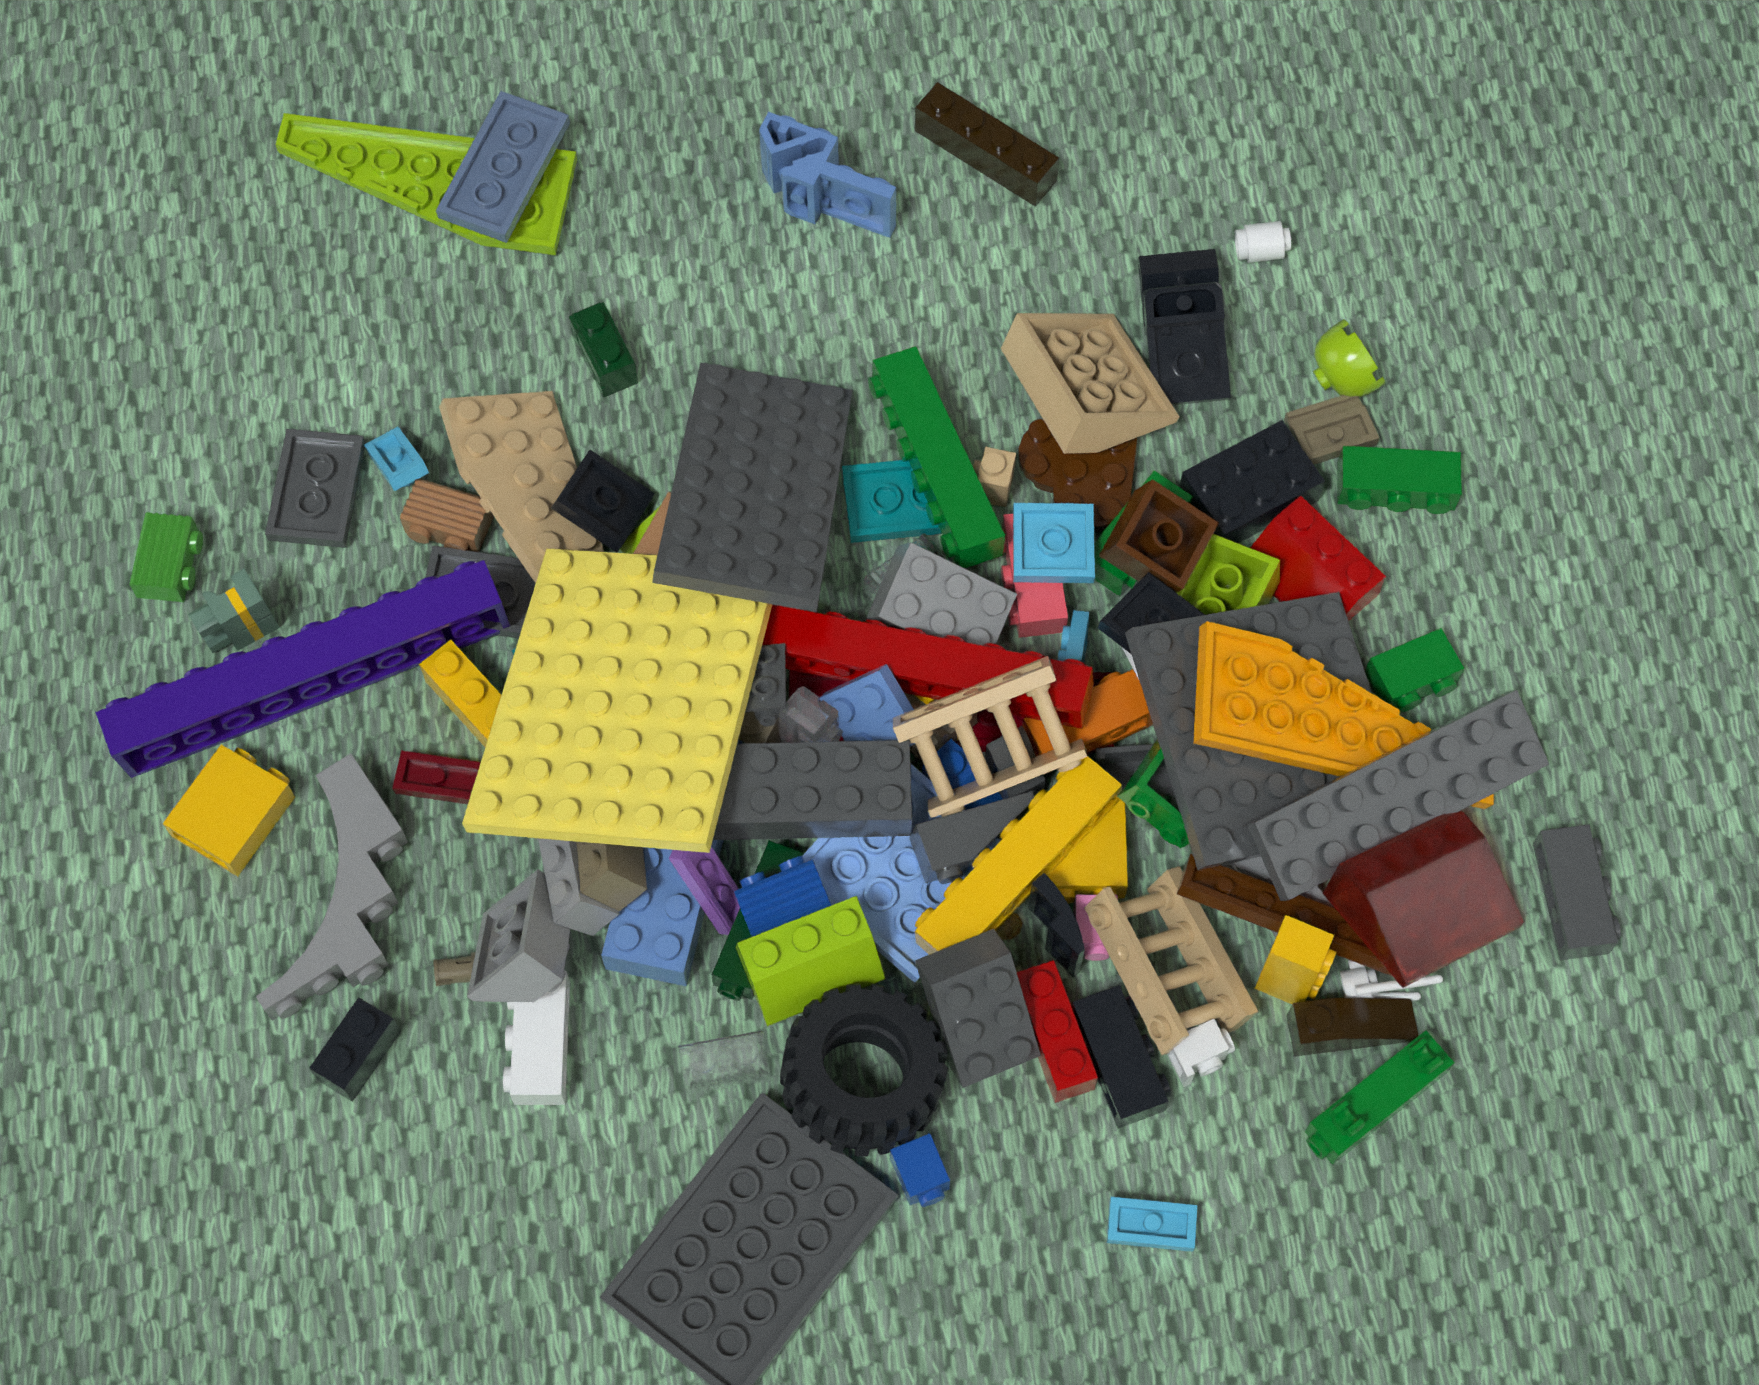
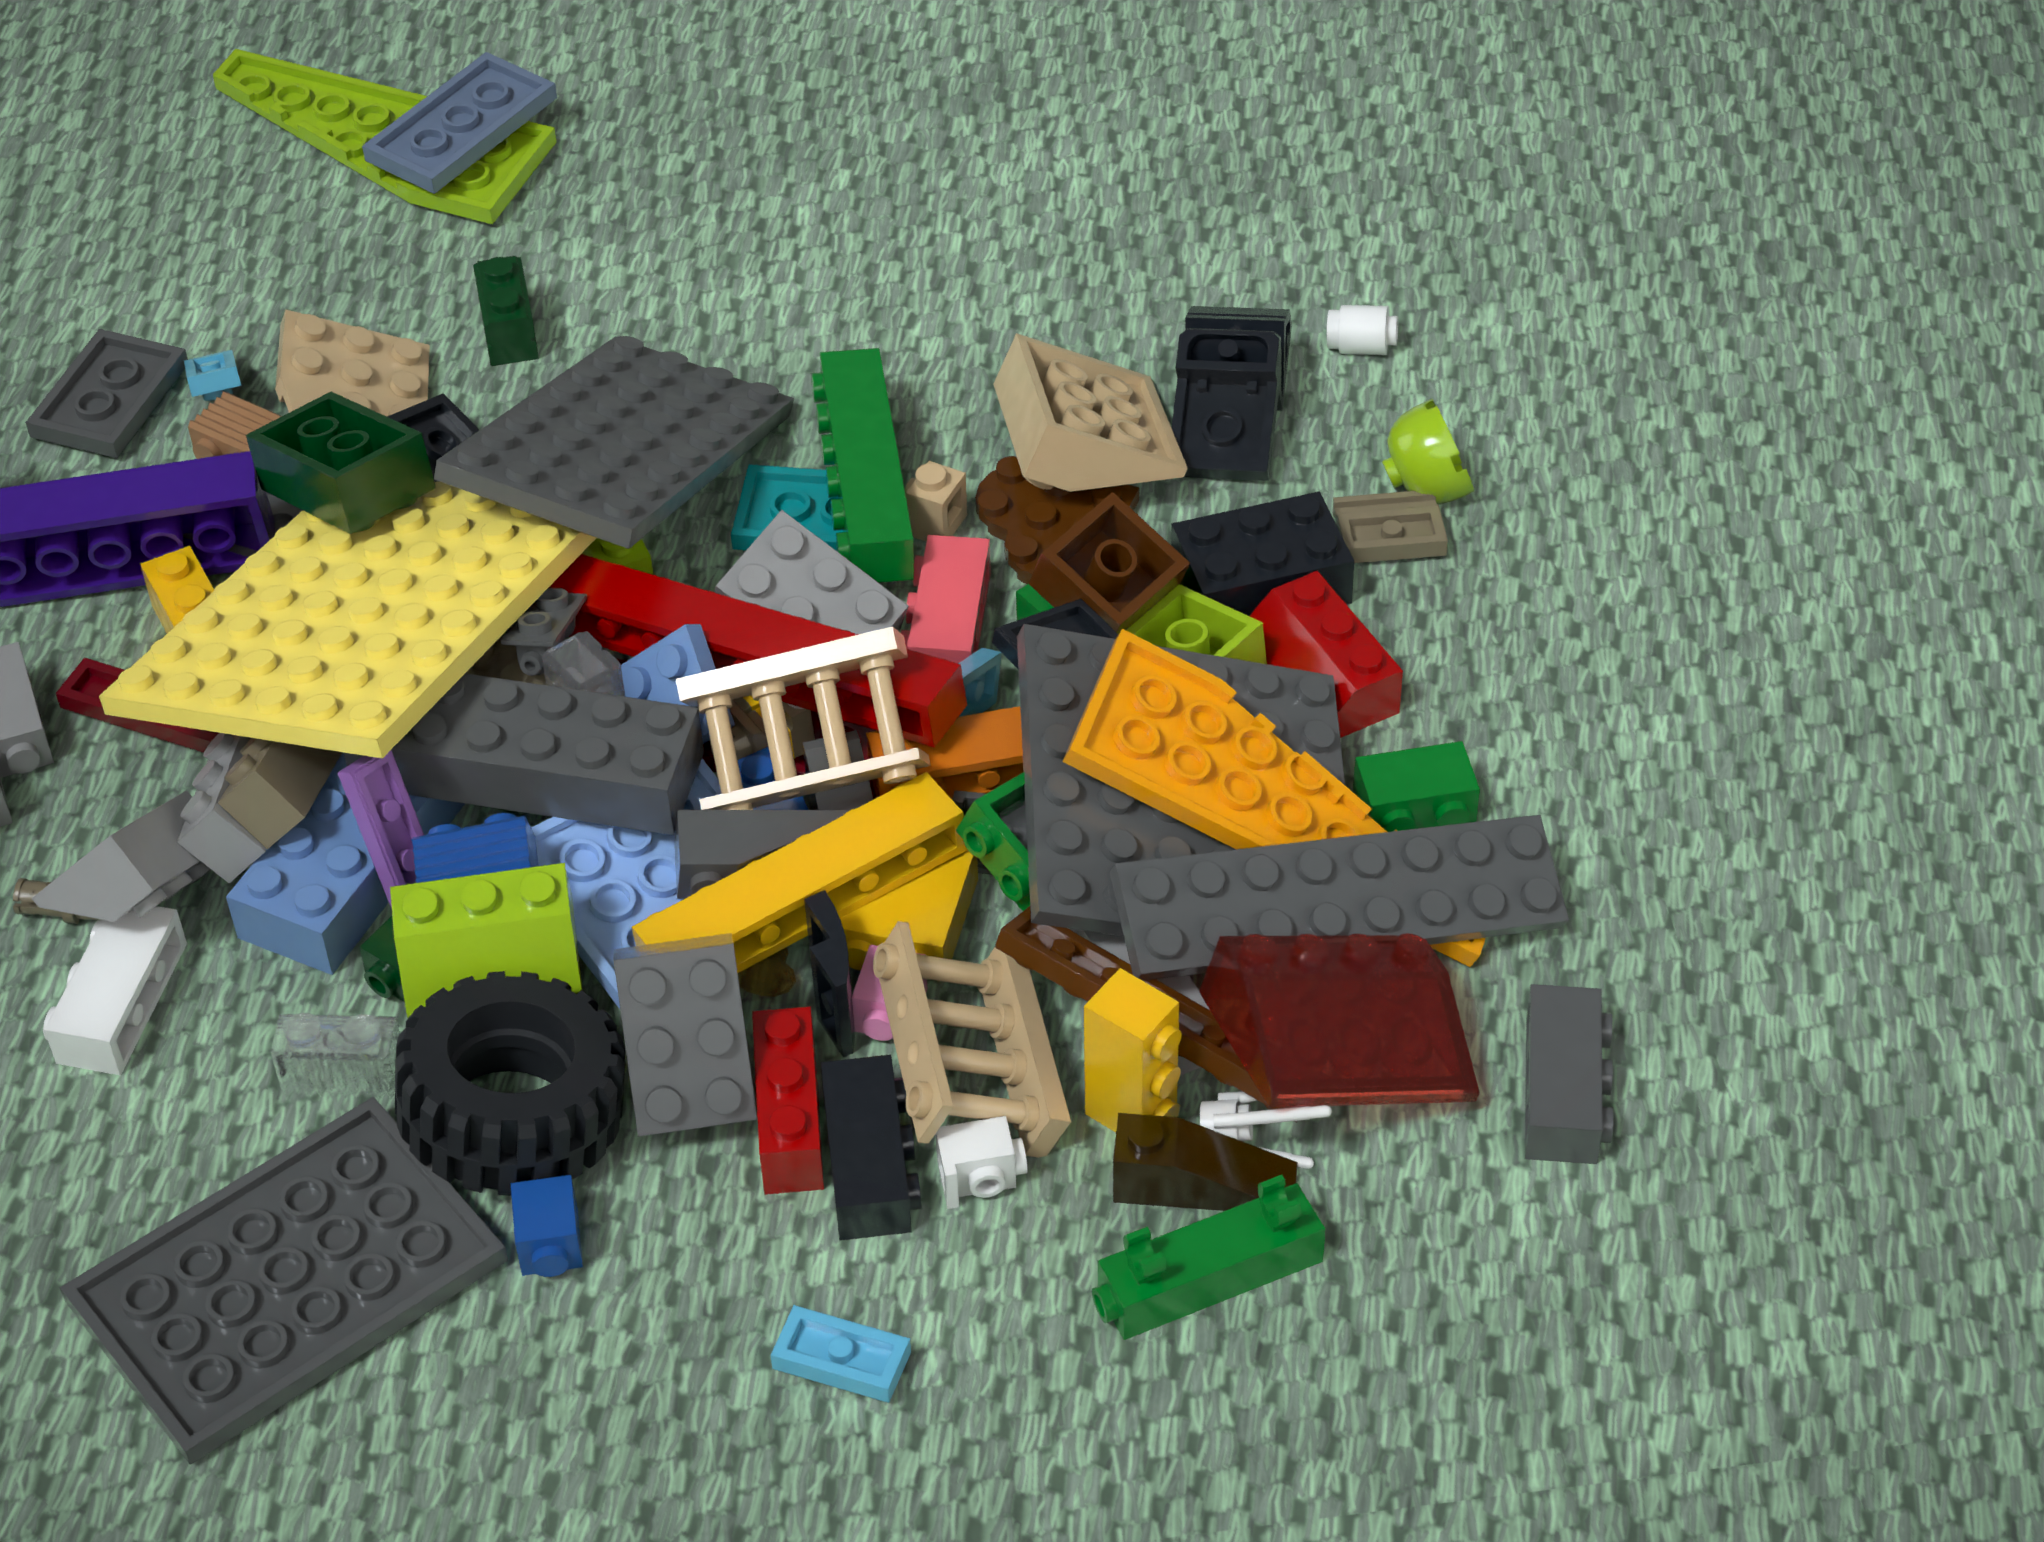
camera: 15 degrees right, 20 degrees down
(561, 564) = (341, 462): none -> dark green brick
(808, 172) = (829, 190): medium blue piece -> none
(986, 144) = (1049, 188): dark brown brick -> none
(1053, 543) = (976, 564): medium azure plate -> none
(1399, 479) = (1460, 587): green brick -> none

